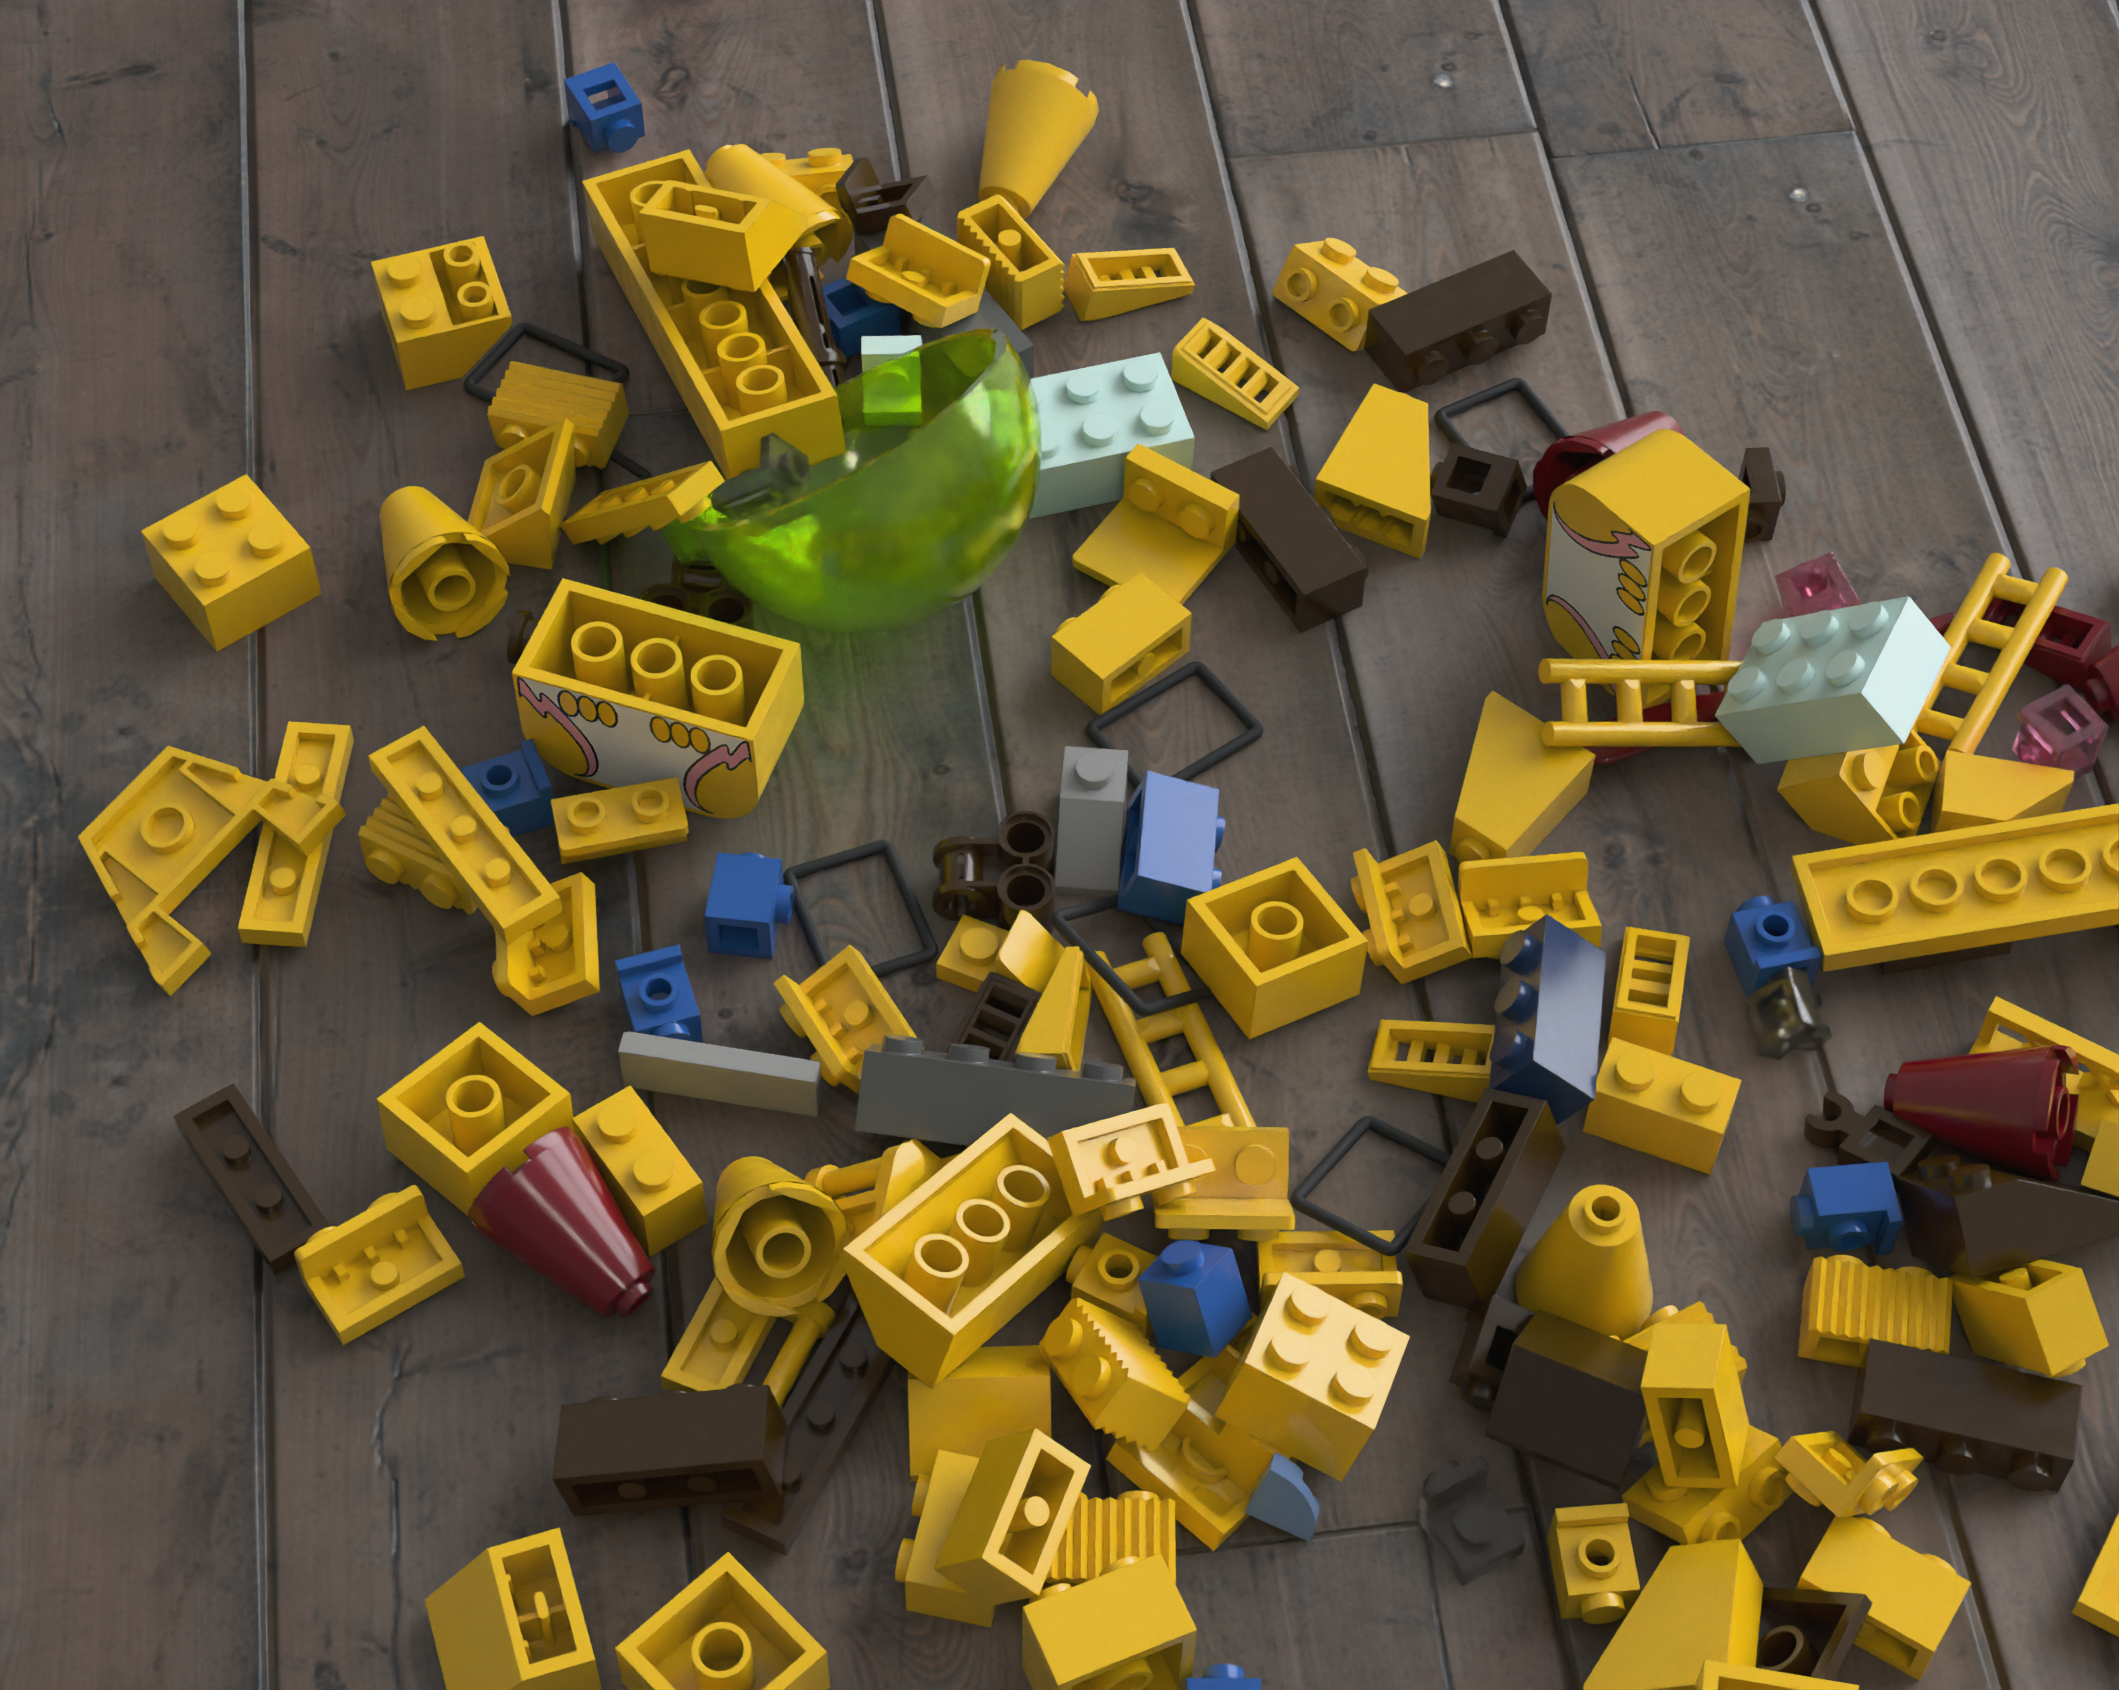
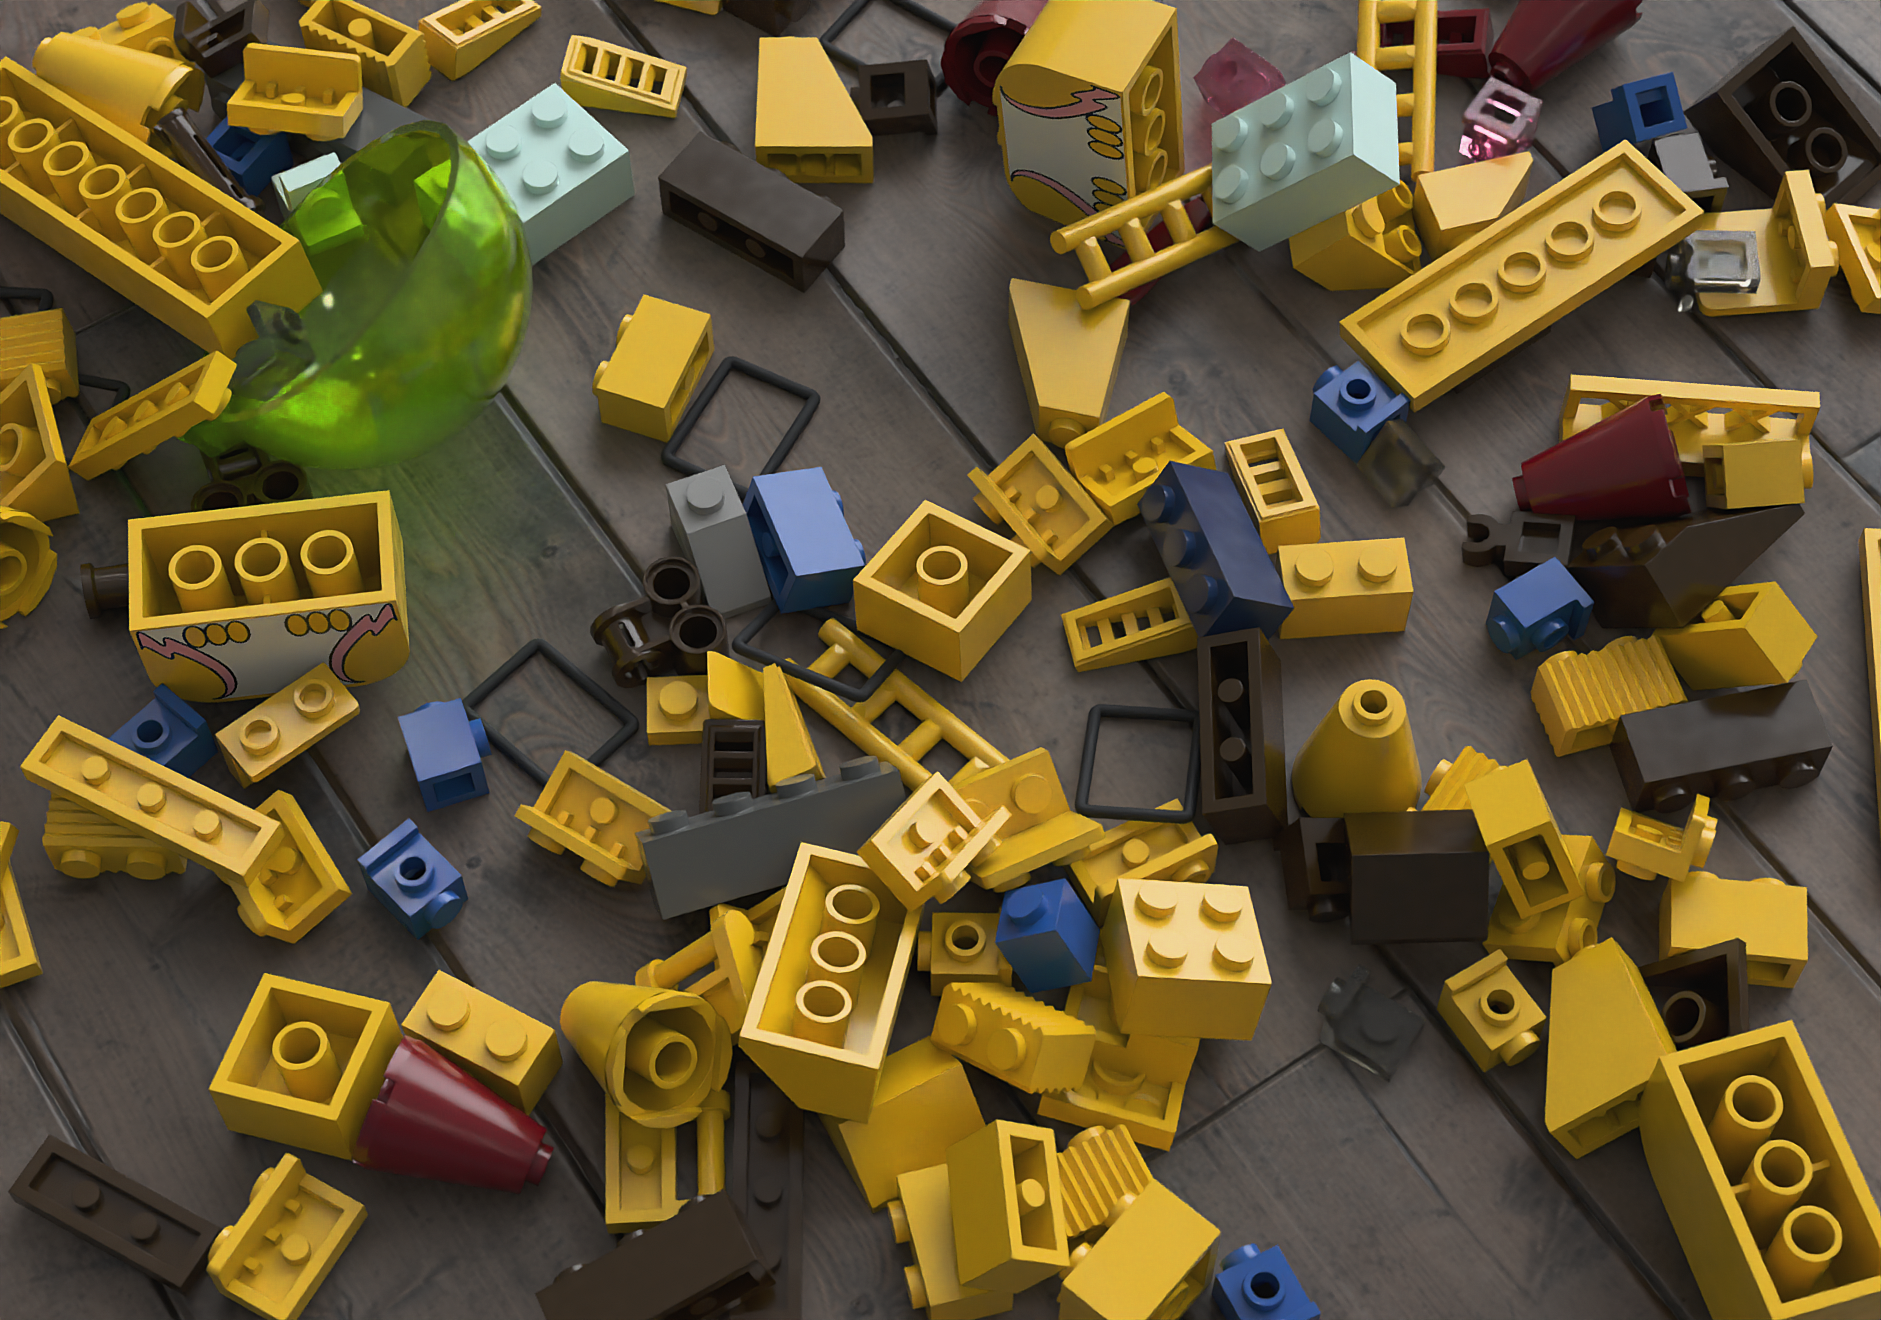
camera: 25 degrees left, 5 degrees up
(717, 235) = (96, 130): yellow slope -> none
(721, 1073) = (506, 920): light grey tile -> none
(1165, 526) = (635, 244): yellow bracket -> none
(1284, 1499) = (1209, 1078): medium blue tile -> none

